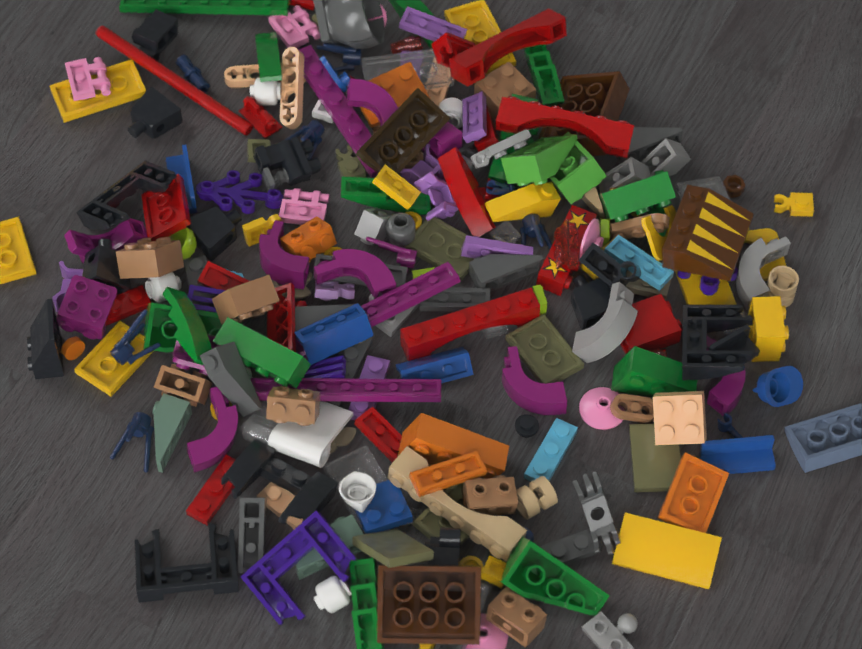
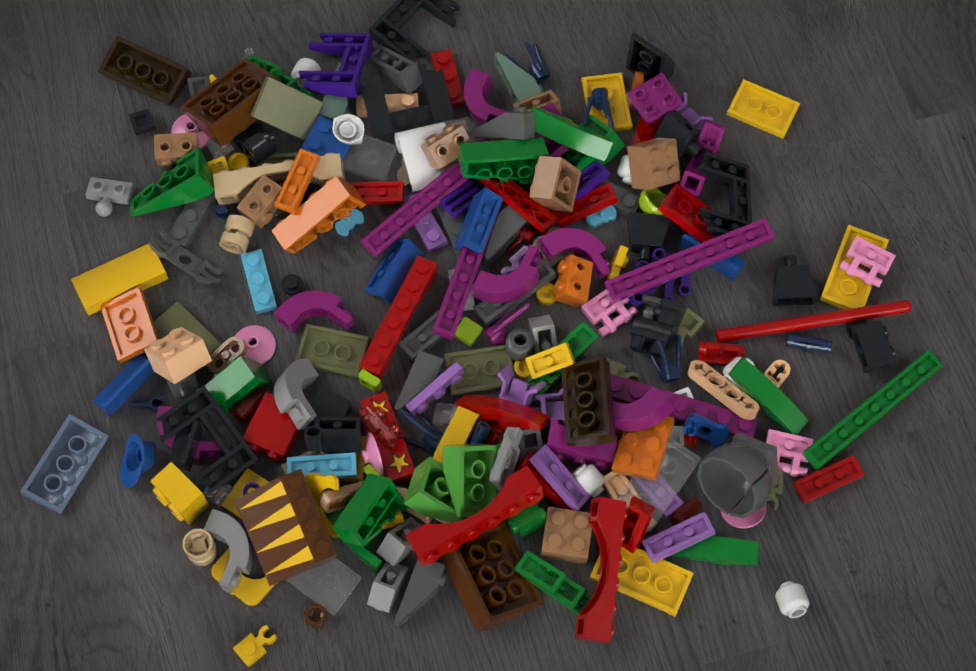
camera: 135 degrees right, 10 degrees up
(213, 172) = (689, 260): none -> magenta plate

